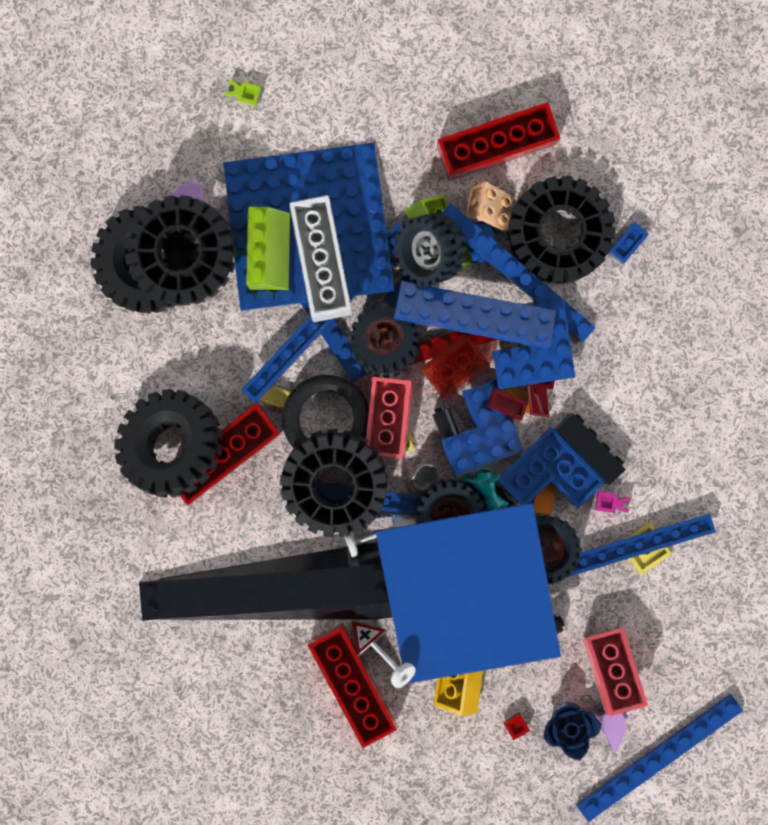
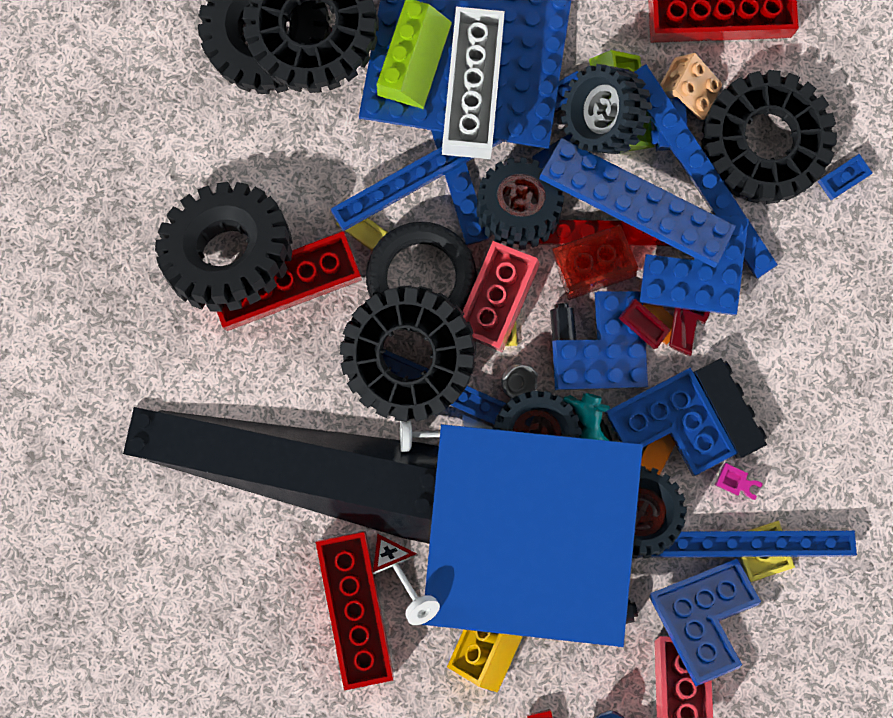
camera: 15 degrees right, 5 degrees down
(605, 615) = (693, 613): none -> blue plate

